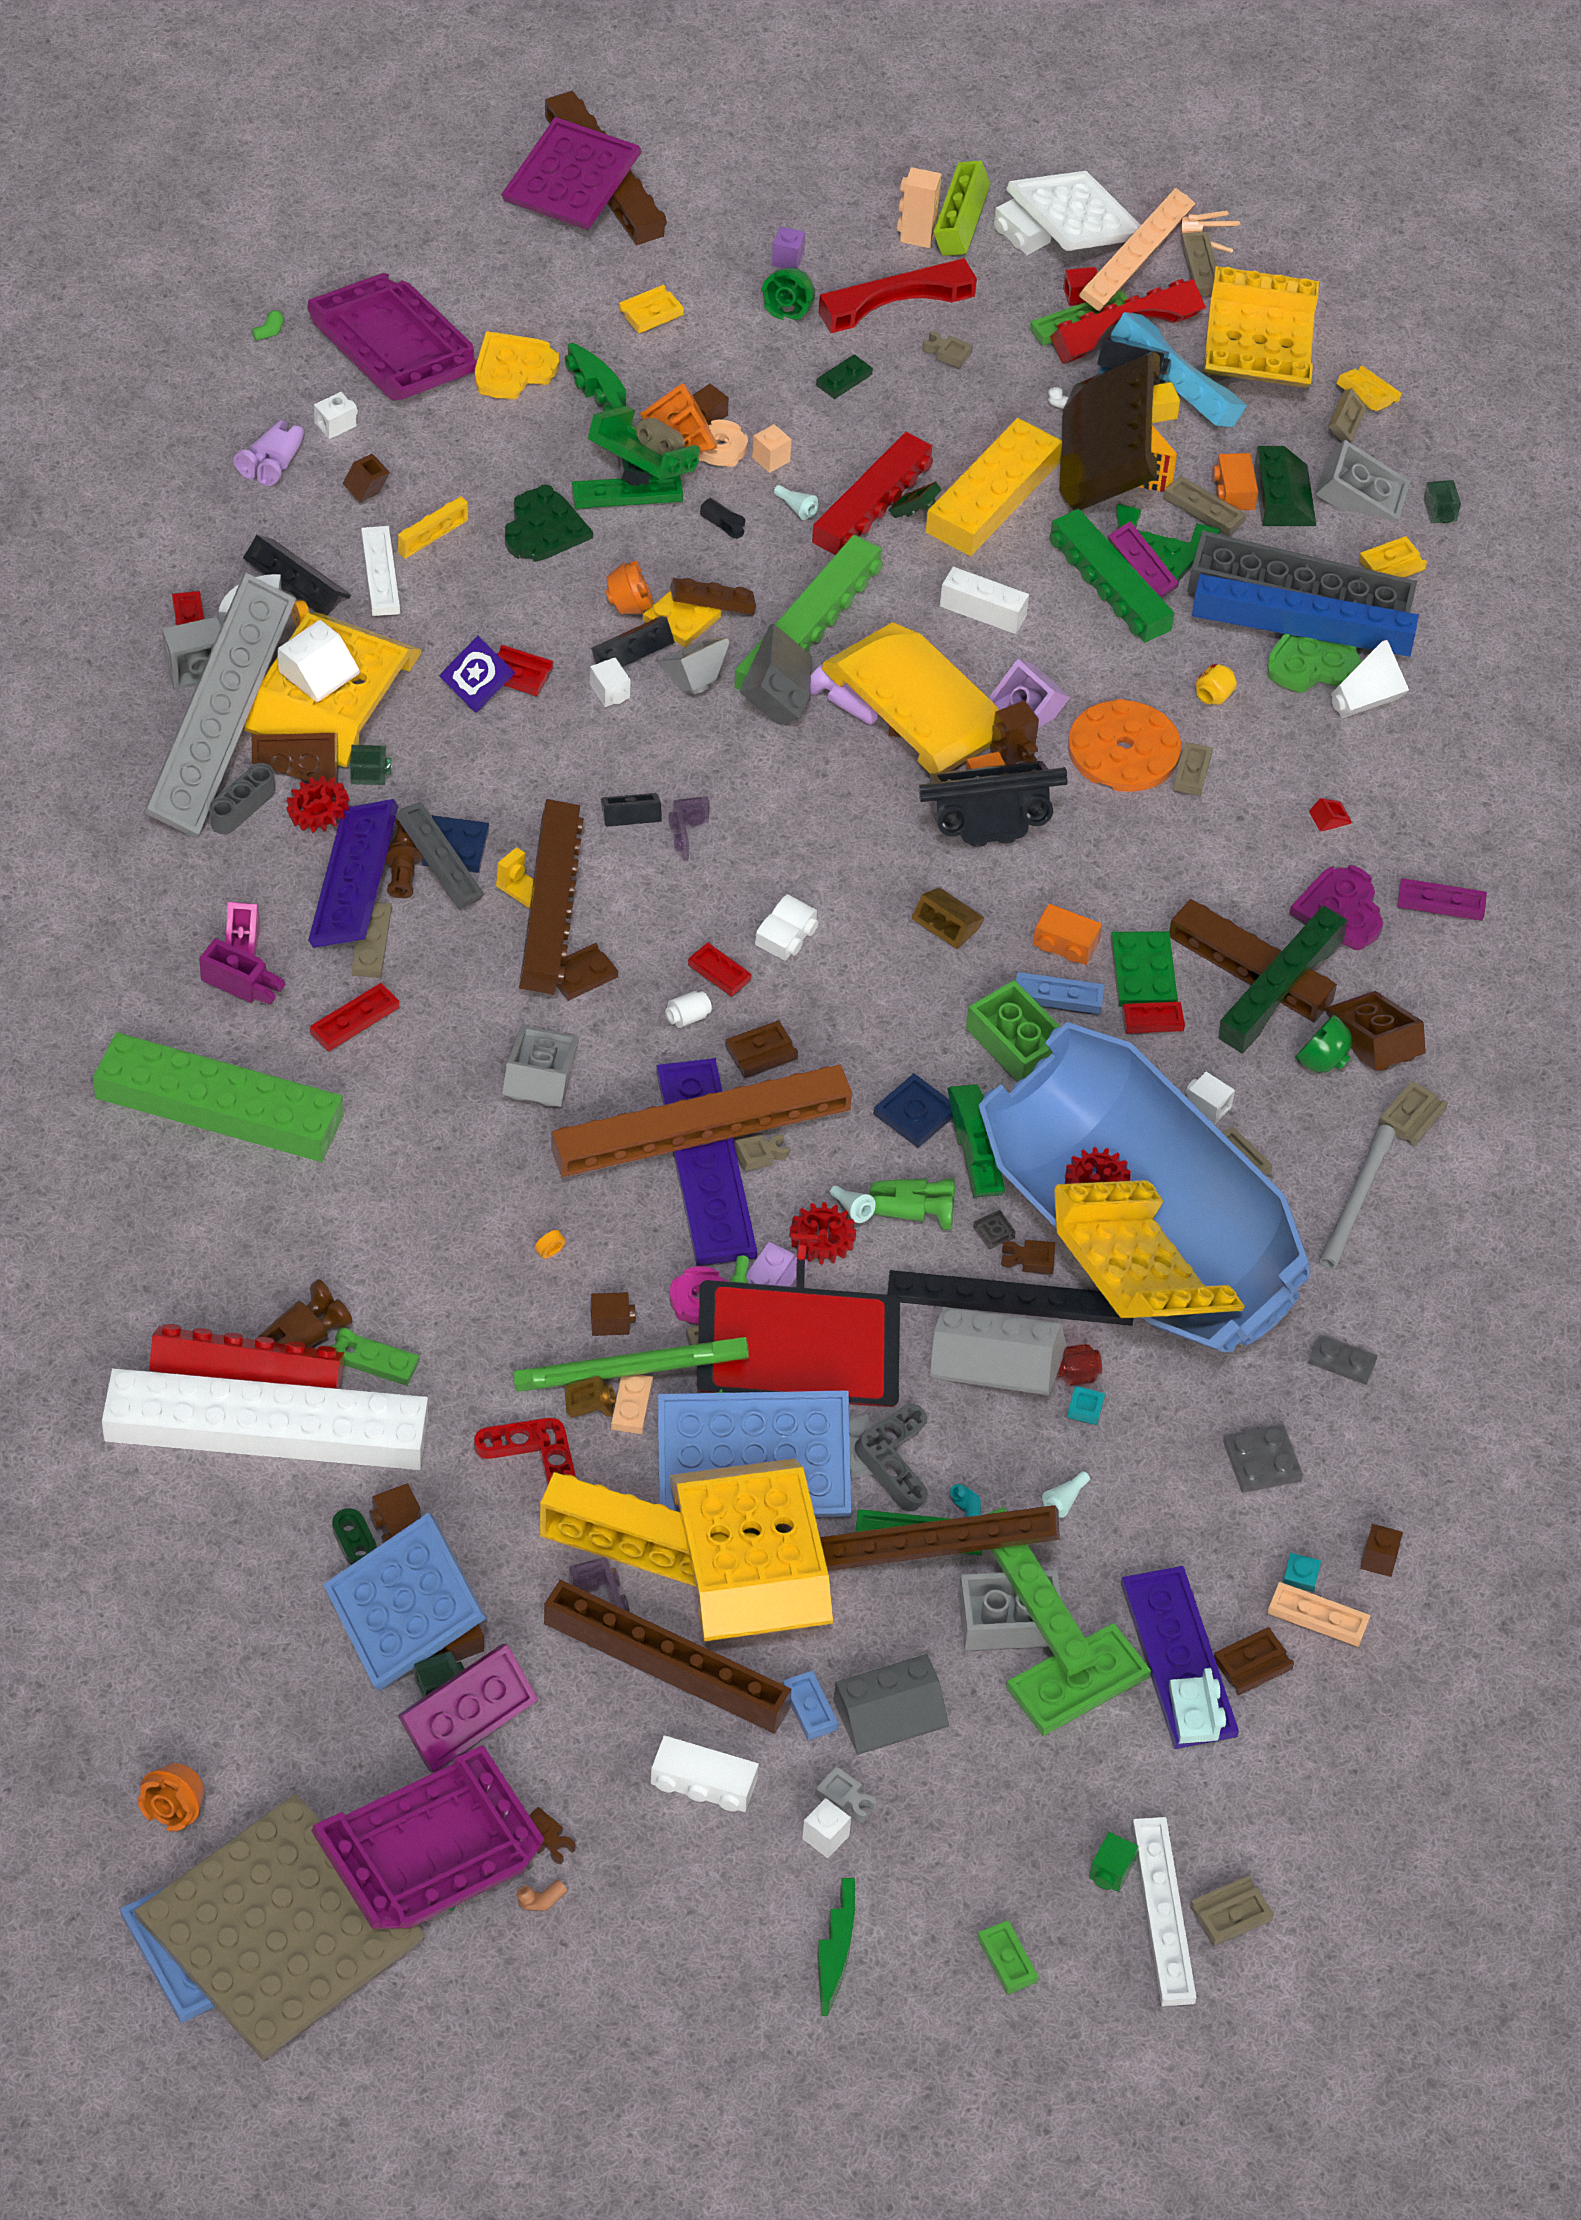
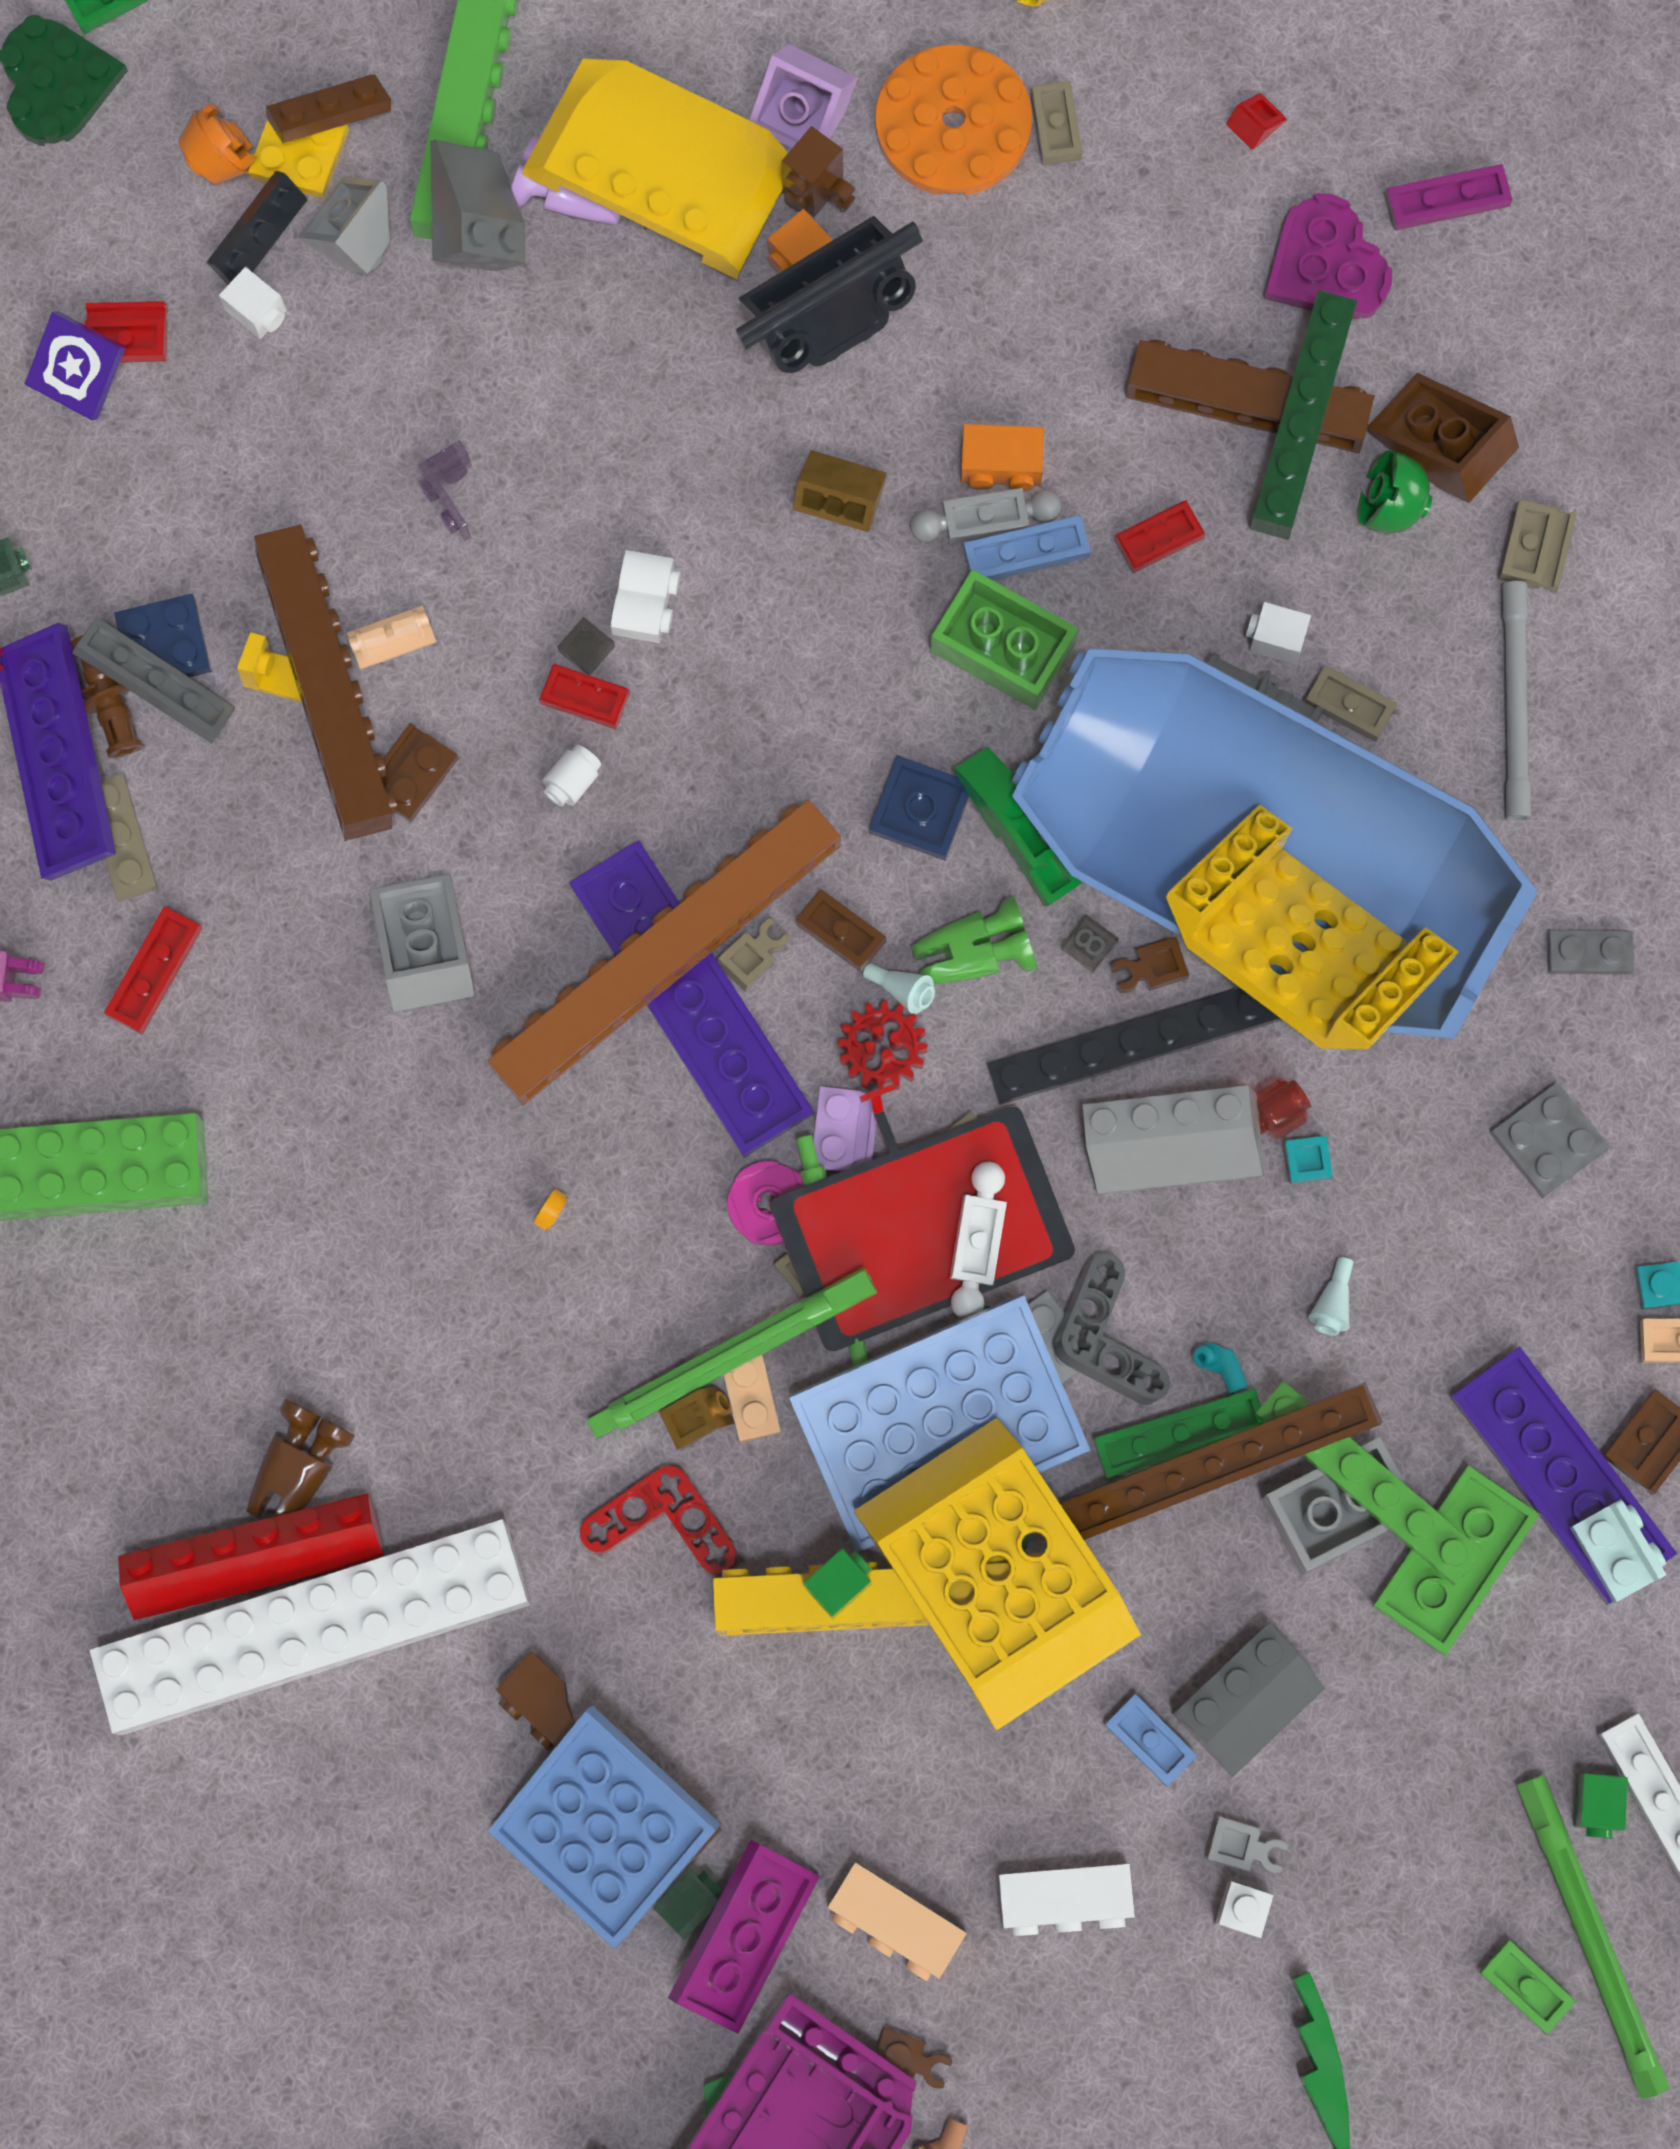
camera: 15 degrees left, 25 degrees up
(354, 1540) = (496, 1746): dark green plate -> none
(376, 1357) = (403, 1469): bright green plate -> none
(578, 1744) = (895, 1923): none -> light nougat brick
(596, 1573) = (808, 1681): clear purple bracket -> none
(601, 893) = (391, 637): none -> light nougat hinge
(611, 1314) = (672, 1282): reddish brown brick -> none
(631, 809) = (364, 489): black slope -> none
(638, 1498) = (839, 1582): none -> green brick
(667, 1656) = (953, 1756): reddish brown brick -> none
(734, 941) = (586, 646): none -> clear smoke plate
(761, 1048) = (689, 797): reddish brown plate -> none
(827, 1158) = (841, 930): none -> reddish brown plate
(836, 1355) = (977, 1239): none -> white plate
(1039, 963) = (985, 515): none -> light grey plate
(1070, 1945) = (1593, 1937): none -> bright green piece
(1082, 1168) = (1168, 822): red gear -> none
(1143, 967) = (1116, 463): green plate -> none

